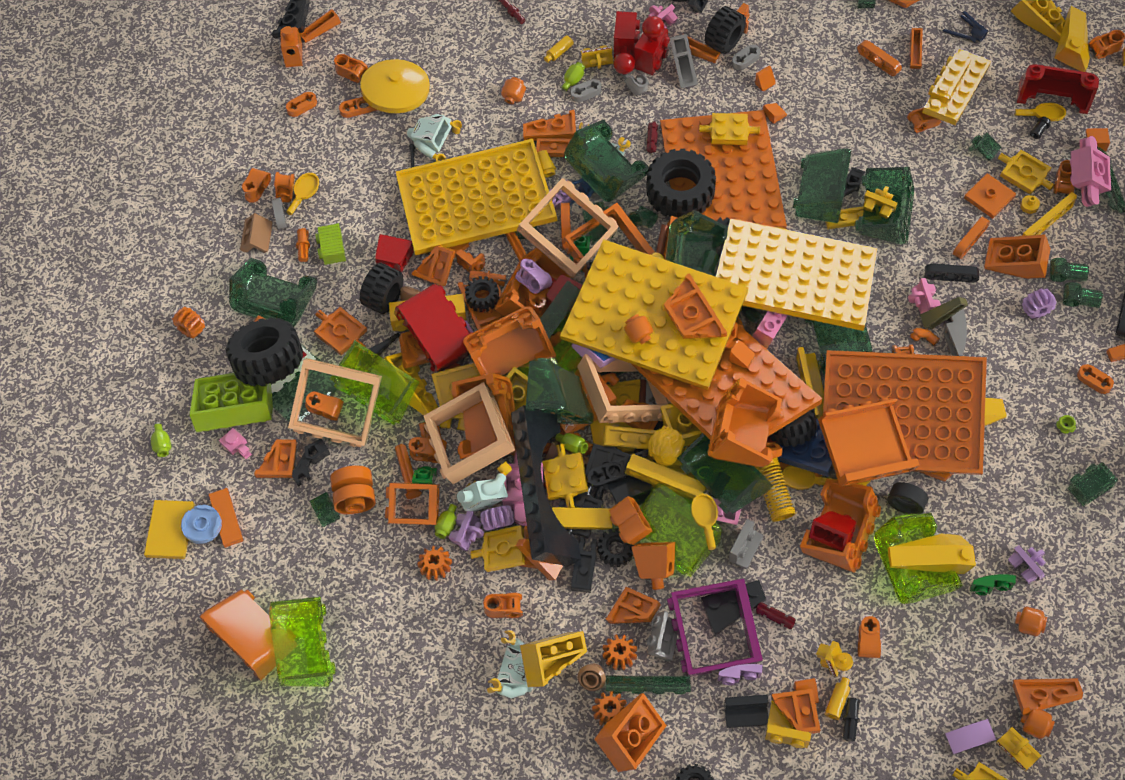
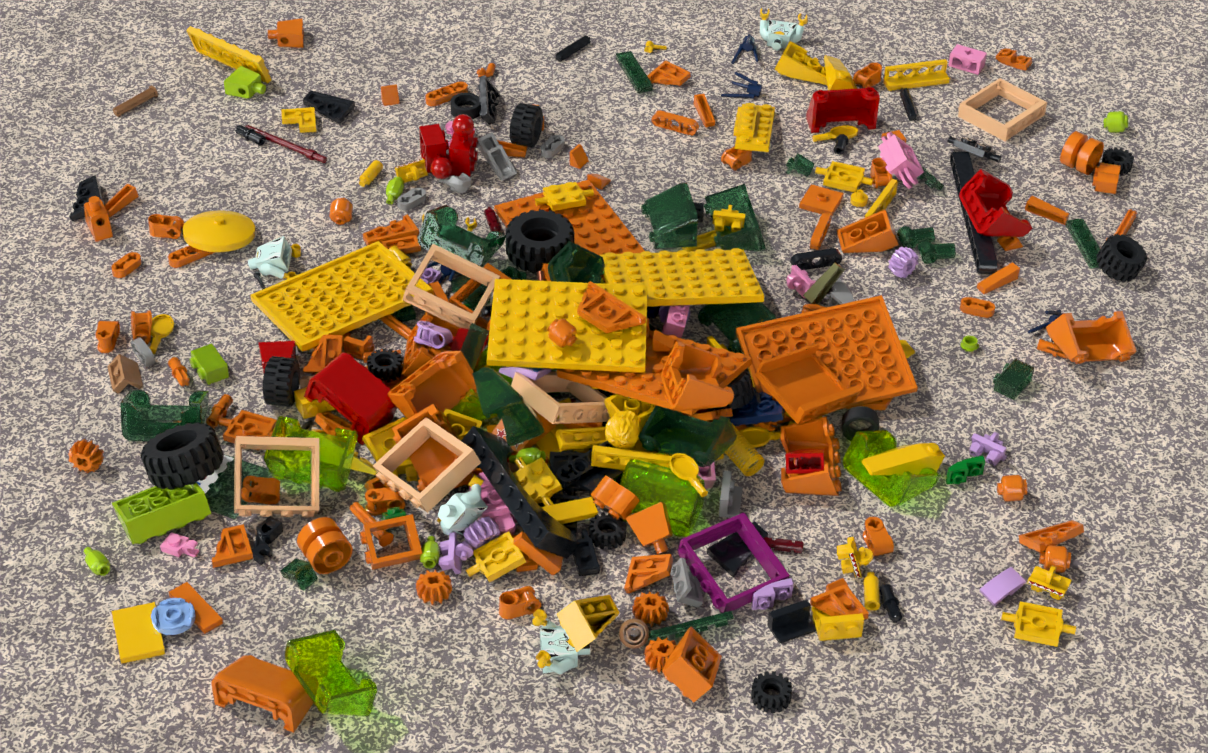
camera: 25 degrees left, 20 degrees down
(322, 300) = (219, 410): none -> orange pin

